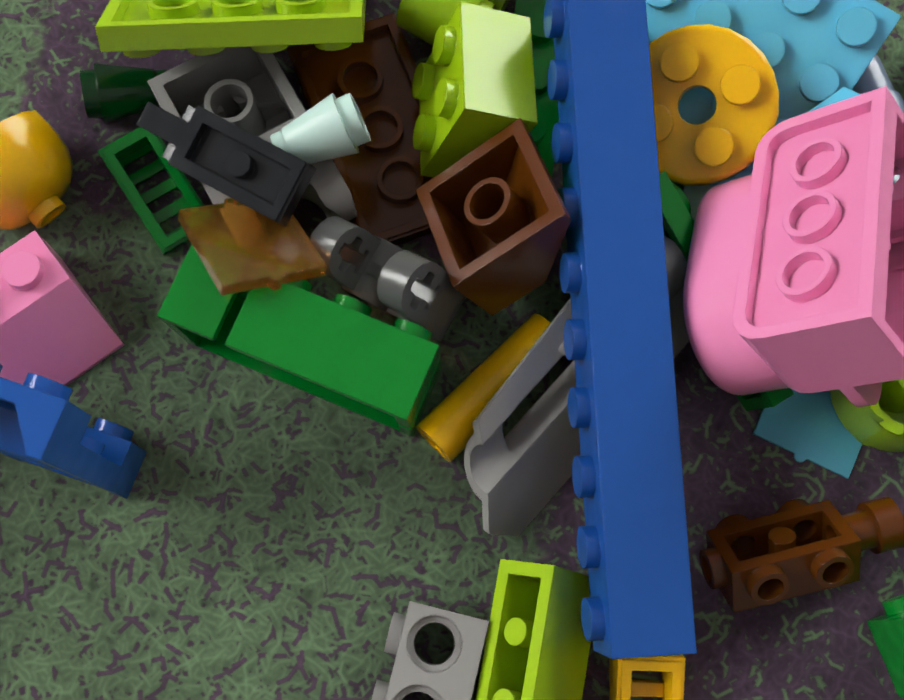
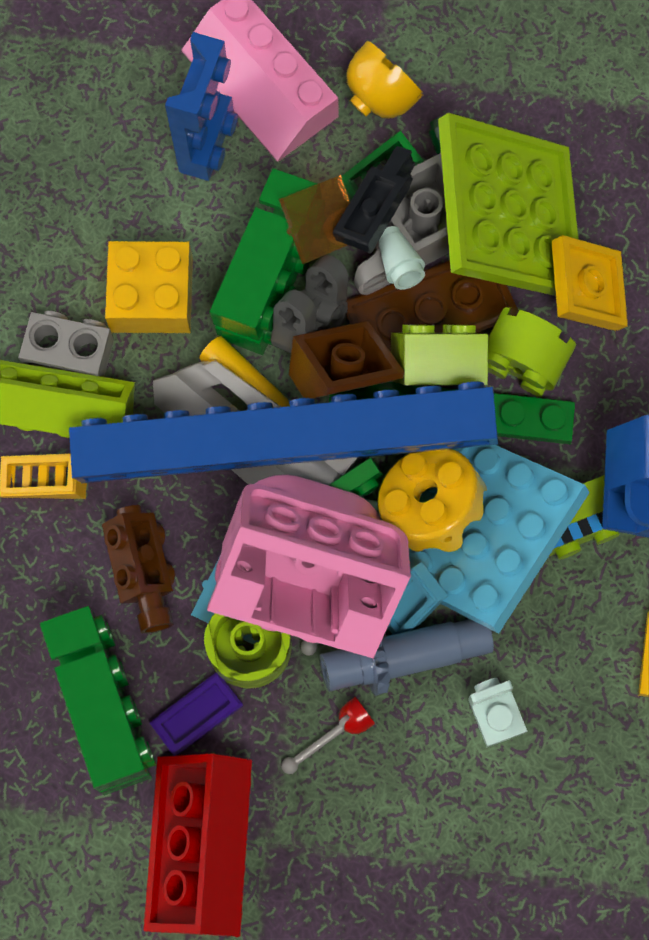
camera: 95 degrees right, 0 degrees up
(330, 538) = (149, 287): none -> yellow brick

